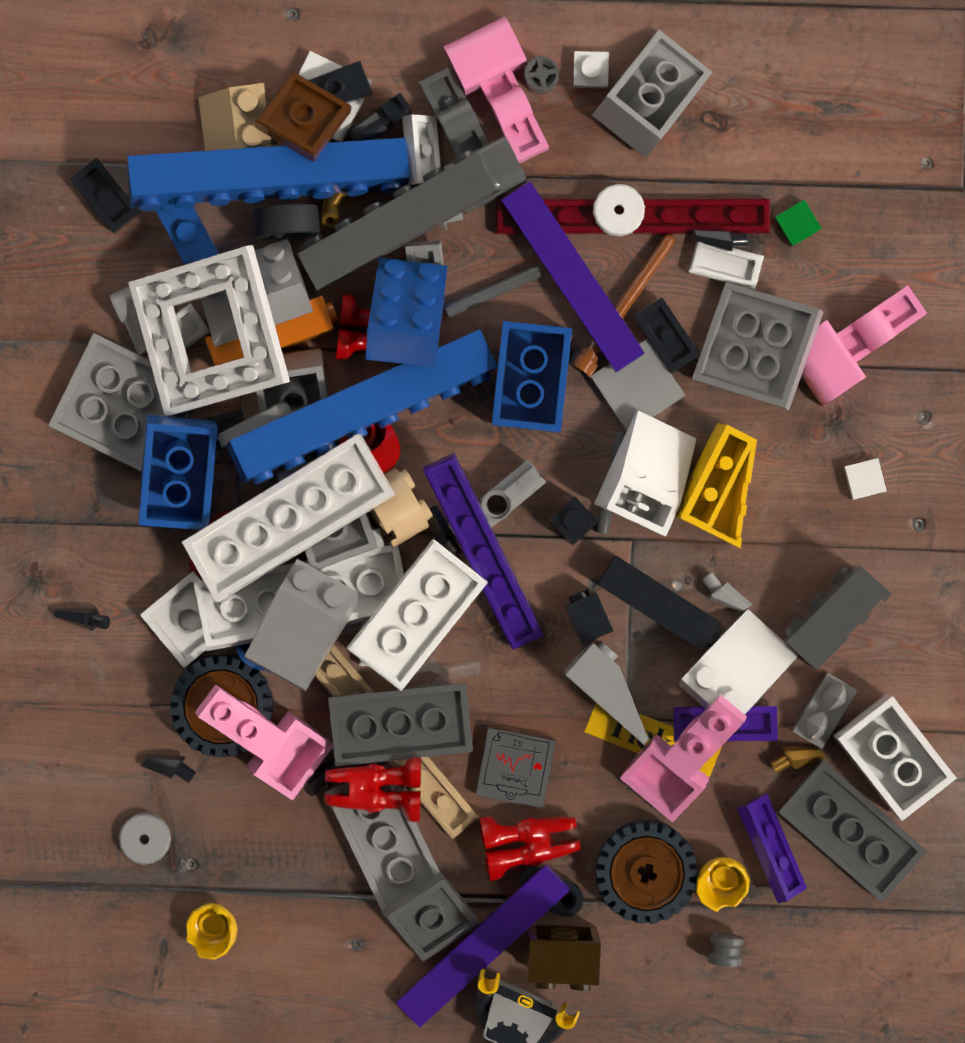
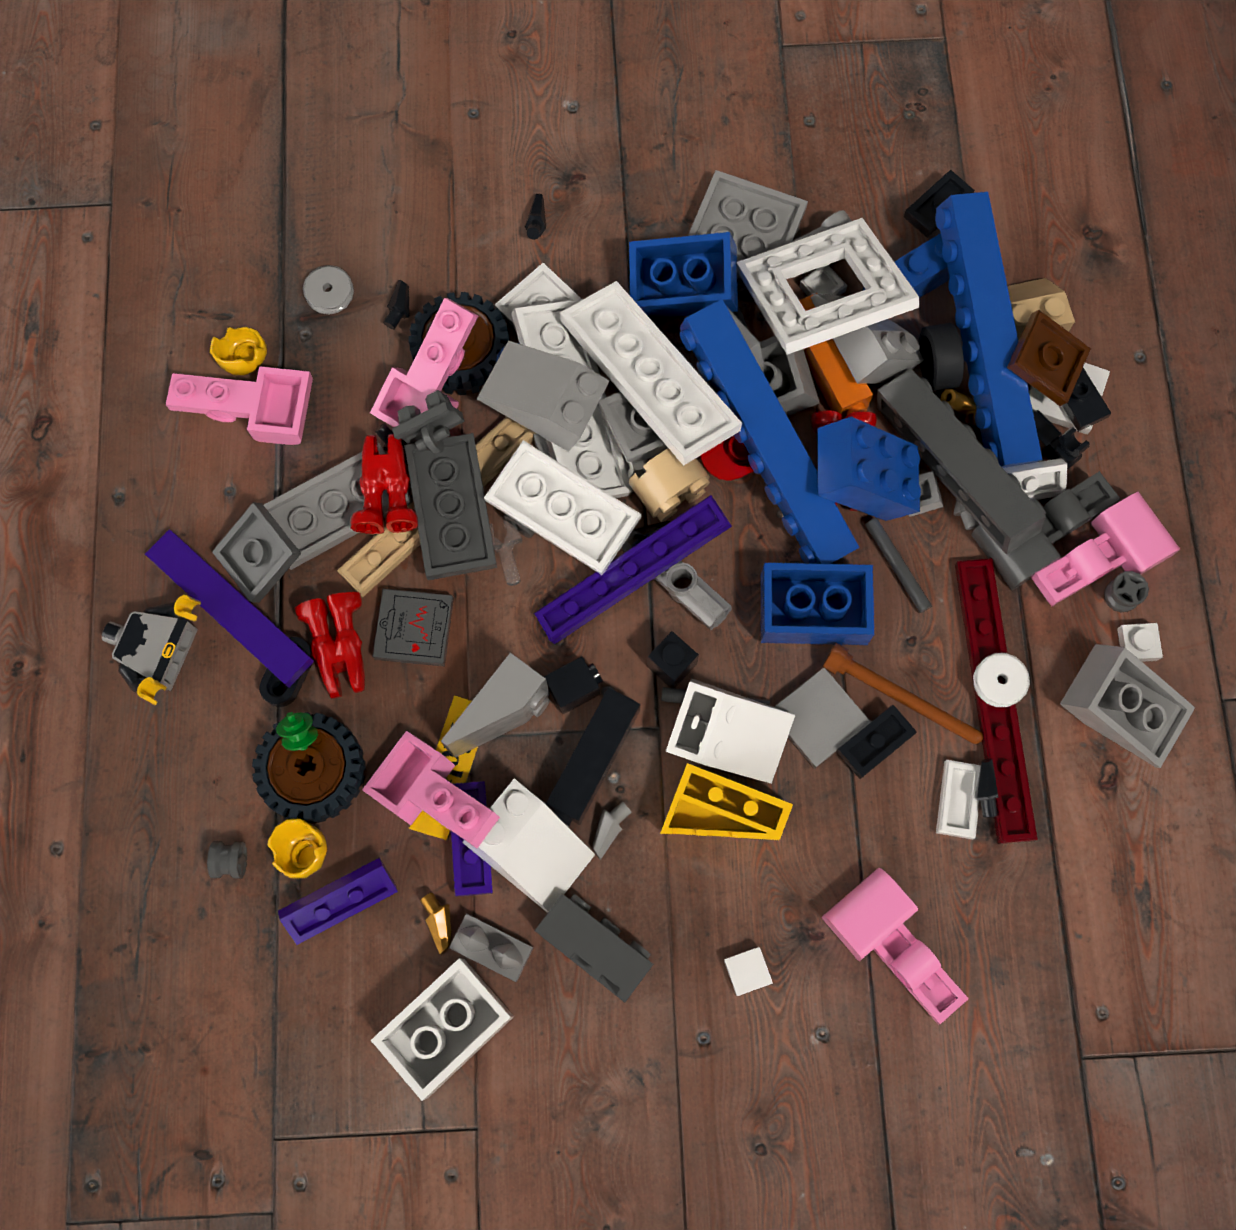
camera: 85 degrees right, 15 degrees down
(272, 896) = (273, 403): none -> bright pink plate
(321, 755) = (429, 427): none -> dark grey hips
(563, 956) = (213, 678): dark brown brick -> none
(572, 277) = (924, 638): dark purple tile -> none
(618, 879) = (297, 731): none -> green wheel
(757, 345) = (880, 836): light grey plate -> none
(798, 223) = (1015, 873): green tile -> none
(852, 830) = (359, 990): dark grey plate -> none

